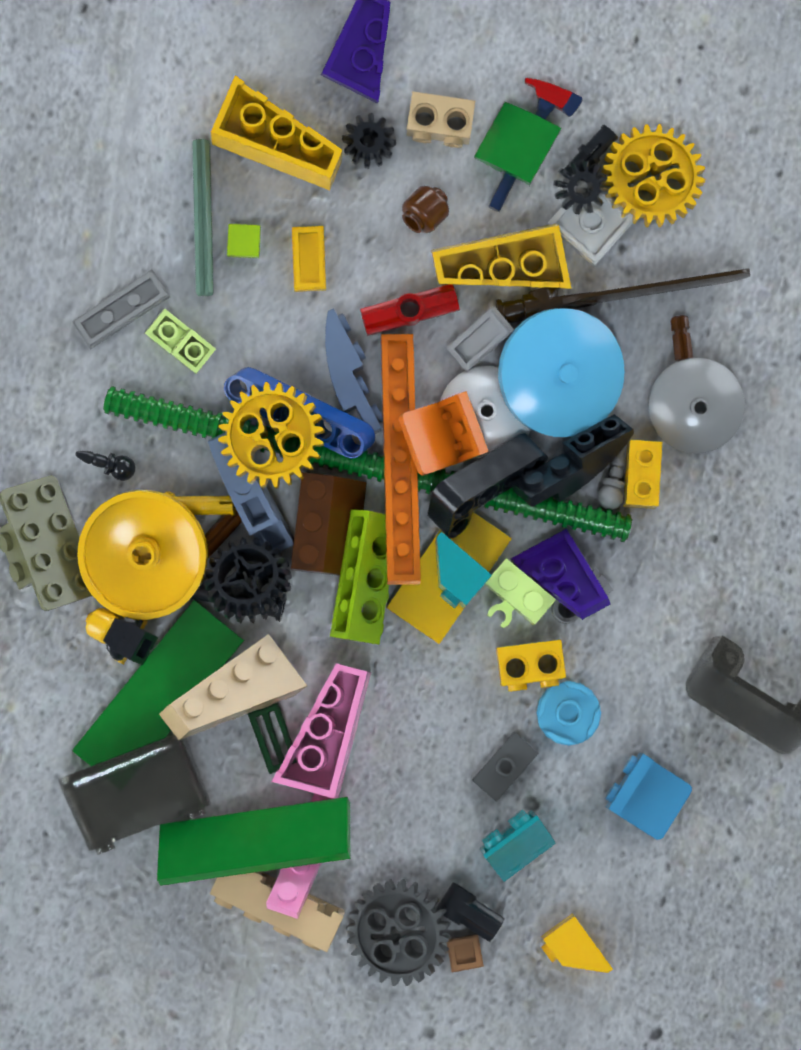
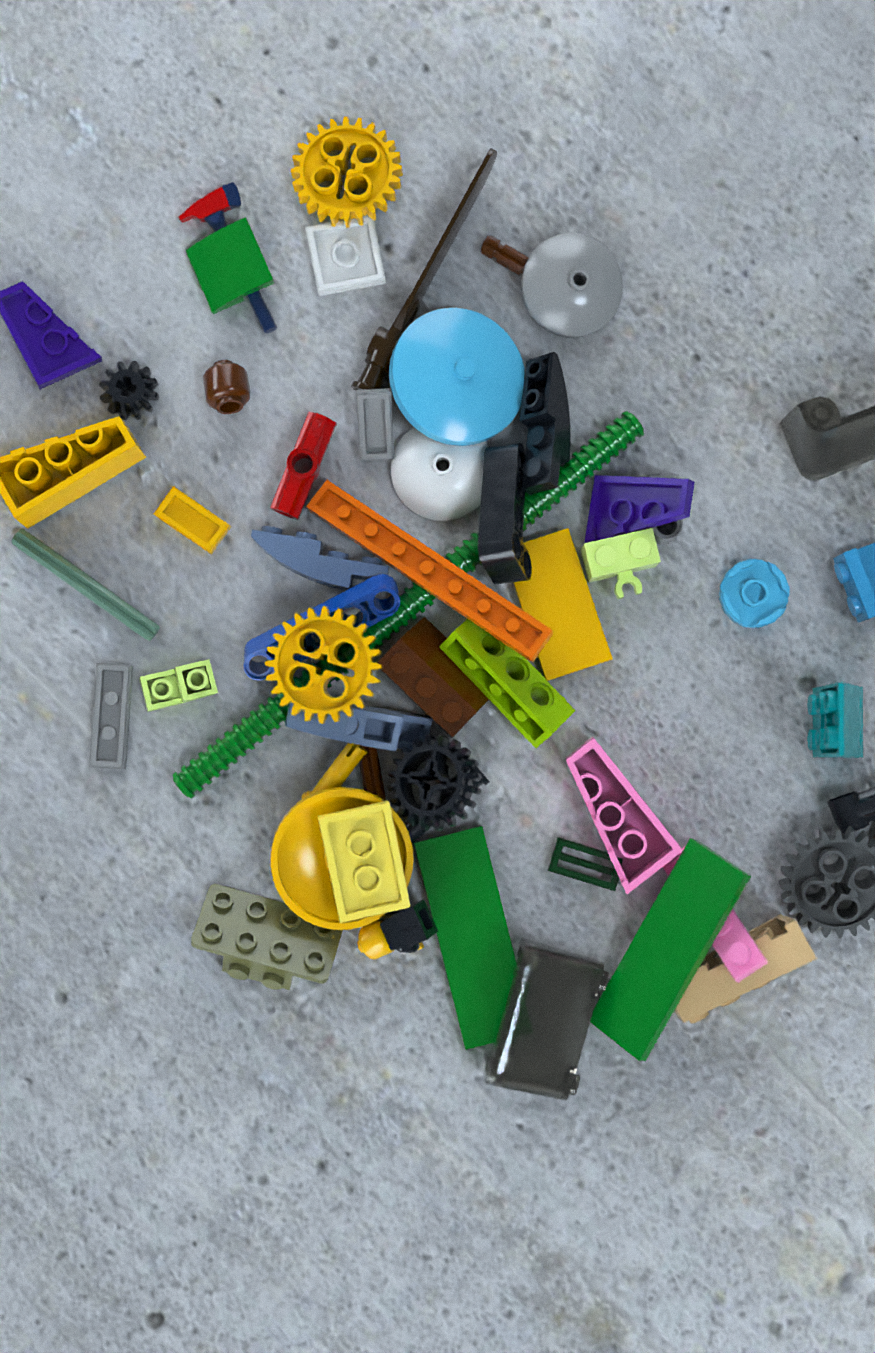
camera: 55 degrees left, 0 degrees up
(120, 467) = (249, 820): black bar -> none
(151, 571) = (364, 861): none -> light yellow plate
(239, 687) = (523, 855): tan wedge -> none
(243, 241) = (133, 564): lime tile -> none
(442, 110) = (150, 309): tan brick -> none
(443, 434) = (435, 515): orange bracket -> none
(458, 573) = (568, 593): teal slope -> none
(505, 766) = (760, 682): dark grey plate -> none
(512, 259) = (330, 340): yellow wedge -> none
(529, 655) = (682, 589): yellow brick -> none
(575, 198) = (304, 223): black gear -> none
(603, 139) = (286, 213): black pin -> none
(611, 495) = (594, 415): light grey bar -> none
(642, 474) = (598, 374): yellow brick -> none

